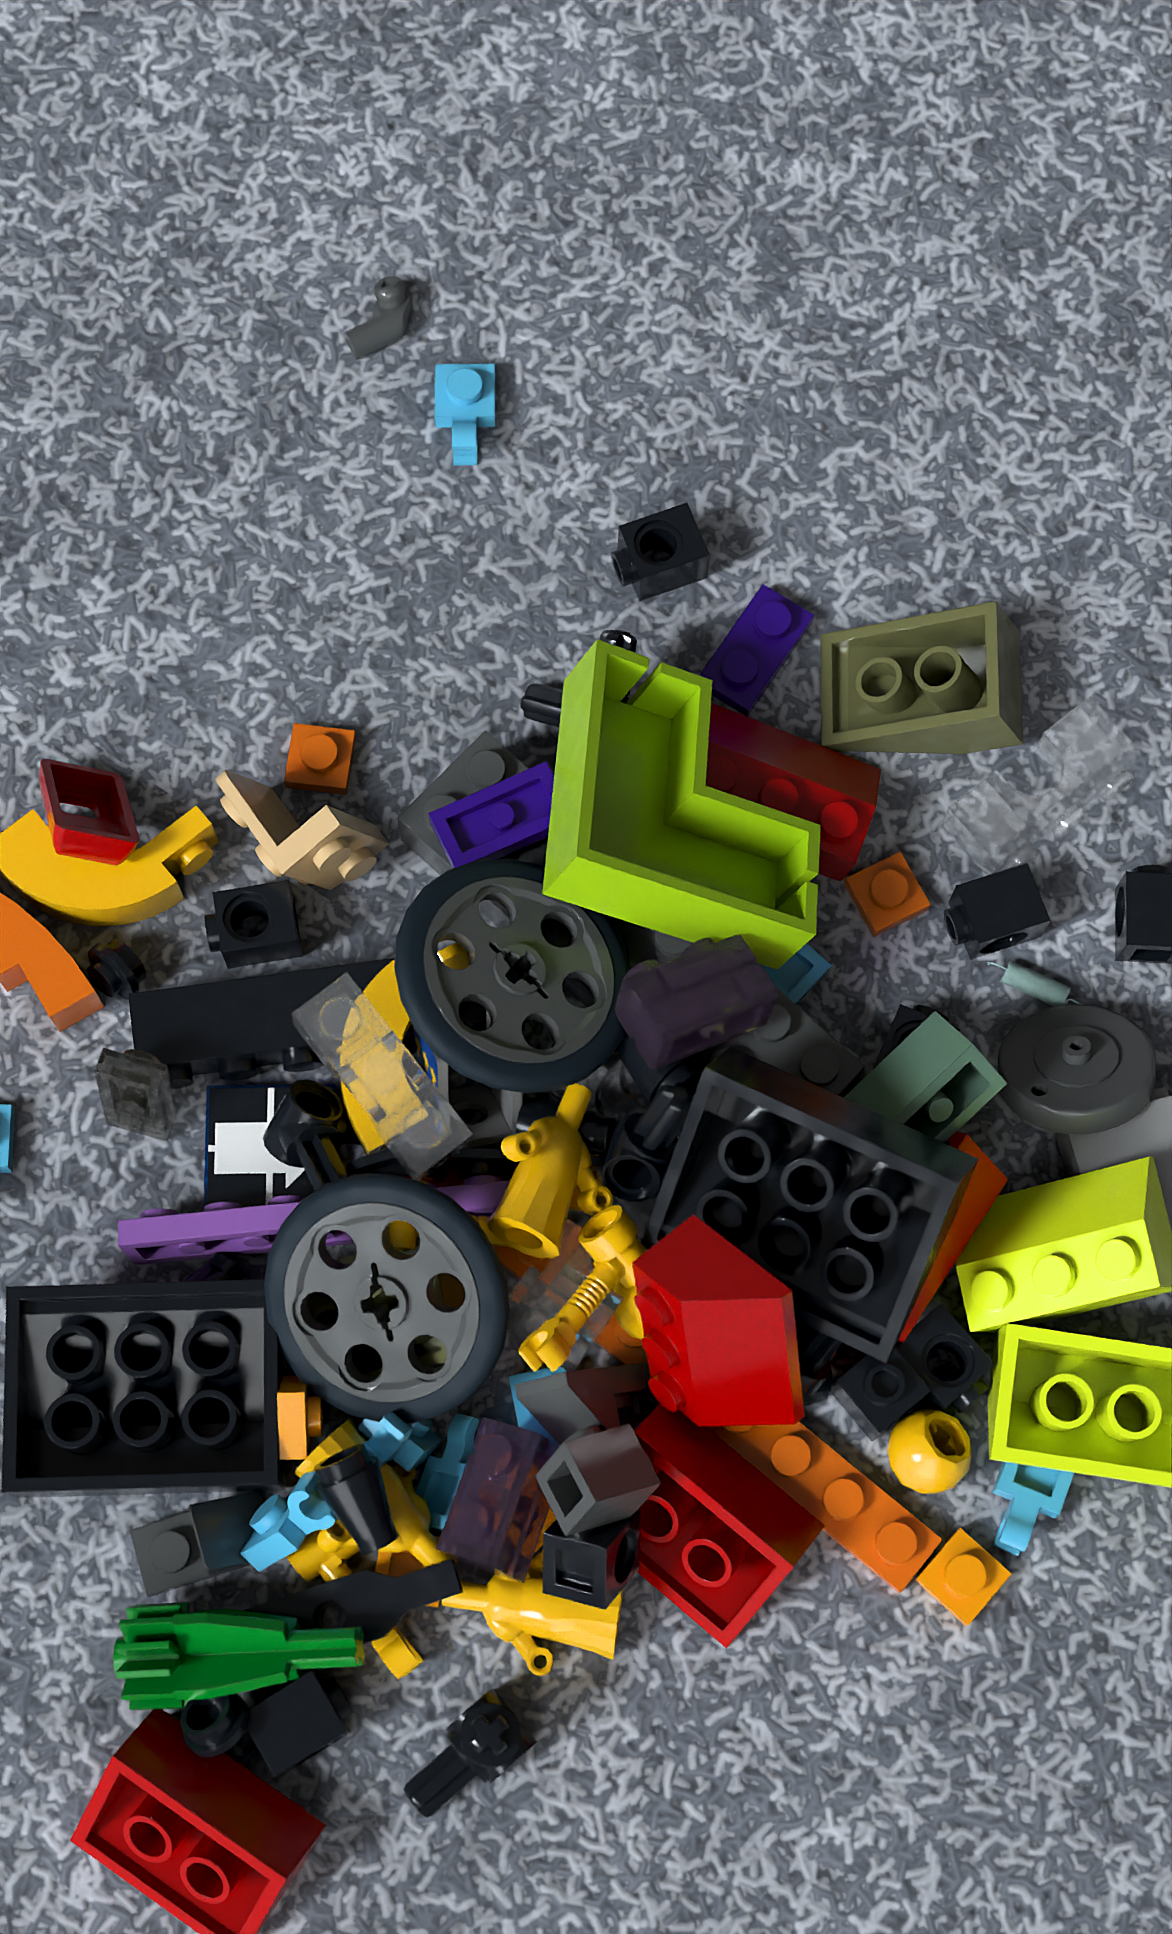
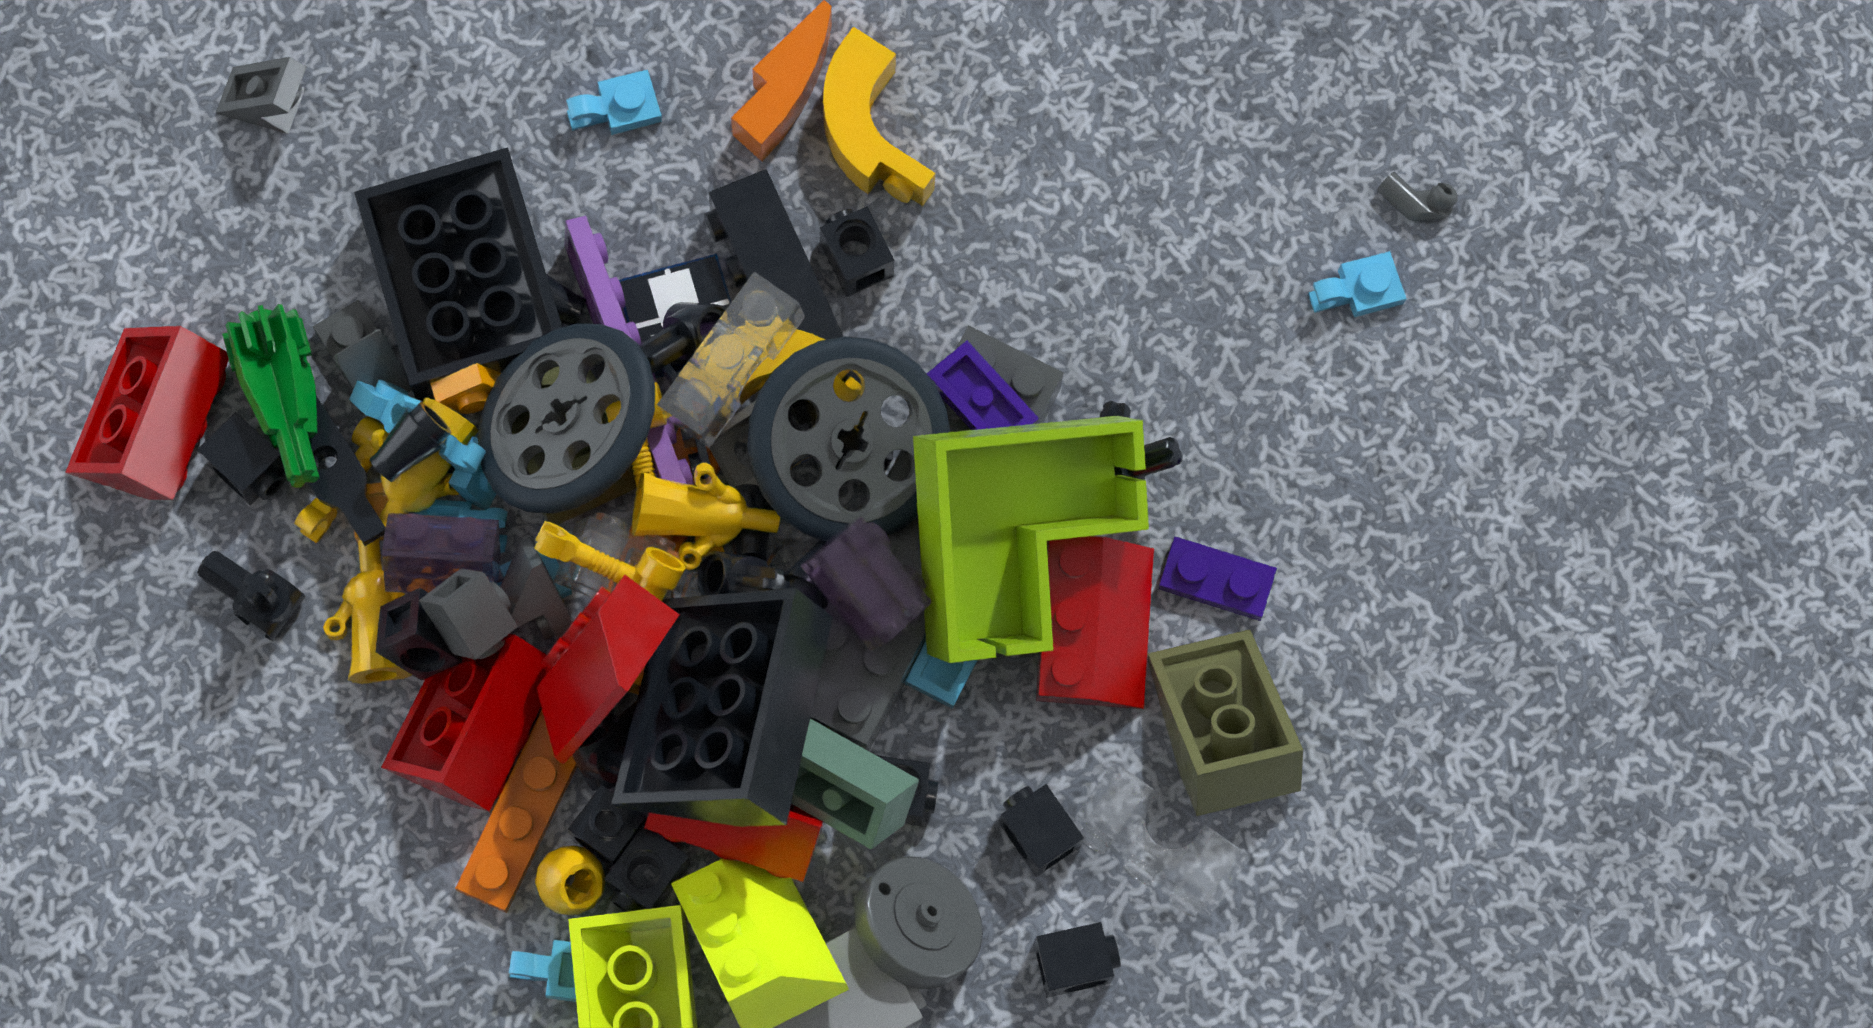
camera: 70 degrees right, 0 degrees up
(102, 839) = (933, 87): red piece -> none
(115, 969) = (790, 158): black plate -> none
(135, 1092) = (689, 197): clear smoke plate -> none
(214, 1724) = (223, 395): black plate -> none
(320, 758) = (1014, 261): orange plate -> none
(320, 852) = (927, 250): tan bracket -> none
(667, 530) = (1271, 498): black brick -> none
(887, 894) = (1033, 739): orange plate -> none
(963, 1576) = (481, 935): light orange plate -> none
(1035, 984) = (991, 880): light aqua piece -> none

